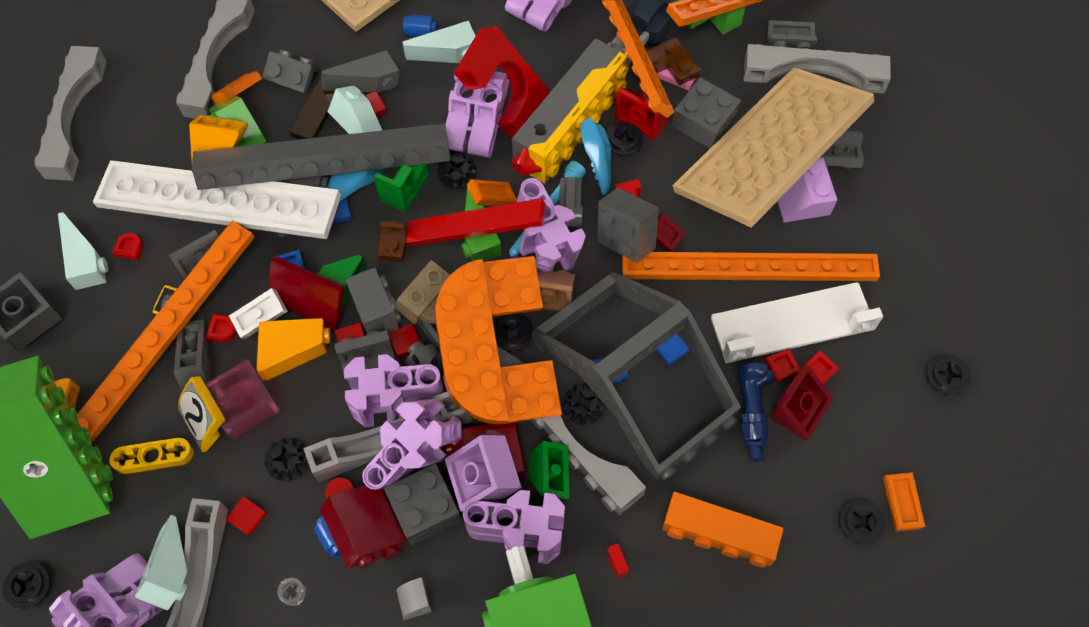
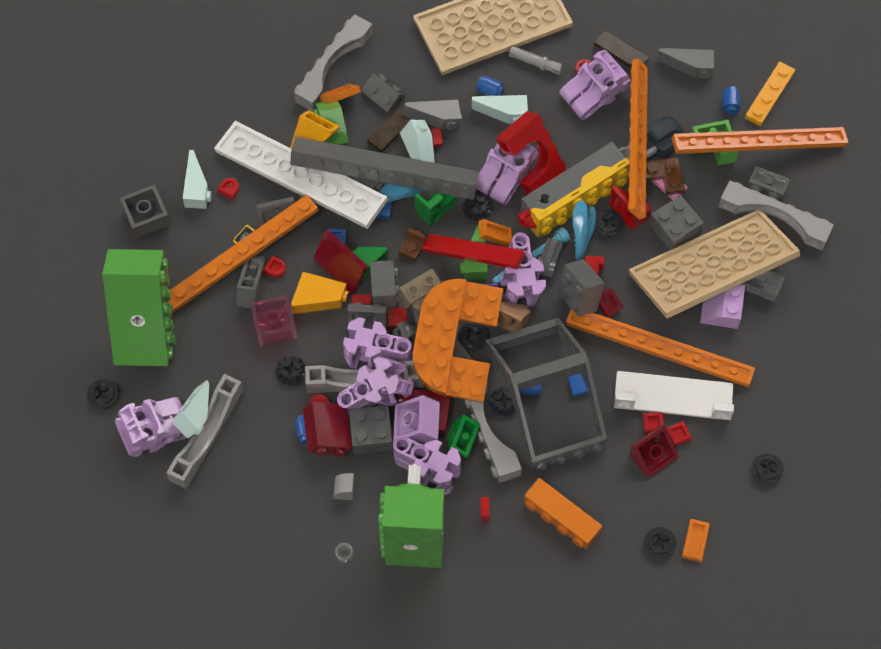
camera: 20 degrees right, 0 degrees up
(82, 72) = (234, 45): light grey arch -> none
(132, 465) = (219, 335): yellow beam -> none
(200, 413) = (245, 320): slope -> none
(246, 516) = (253, 398): red tile -> none
(263, 308) = (307, 263): white plate -> none
(300, 590) = (273, 456): clear bush -> none
(754, 426) = (616, 450): dark blue piece -> none

